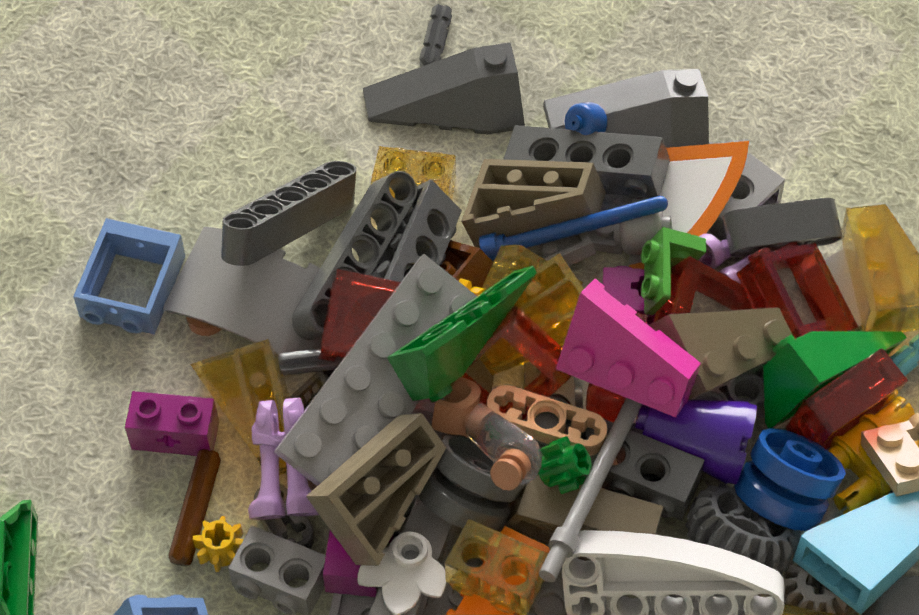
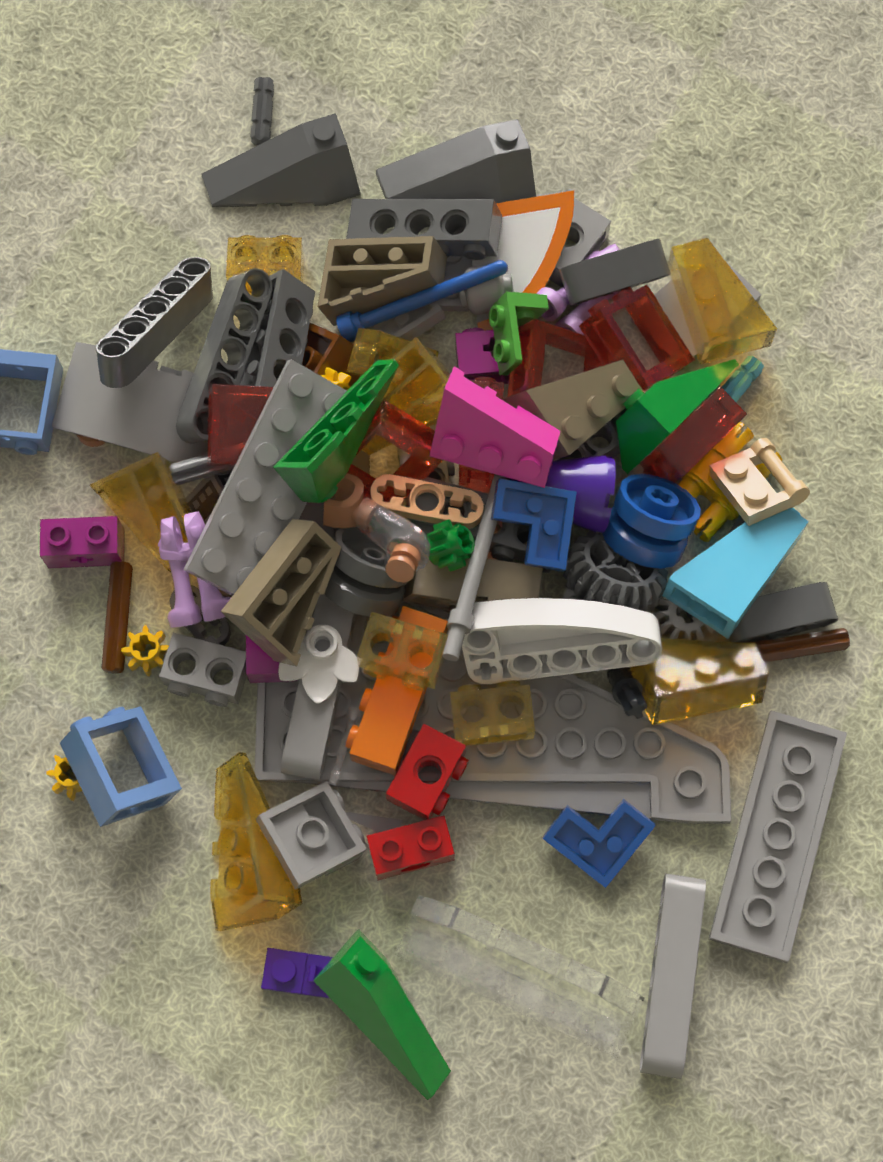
camera: 10 degrees left, 15 degrees up
(586, 118) = (419, 186): blue piece -> none
(673, 444) = (547, 514): none -> blue plate

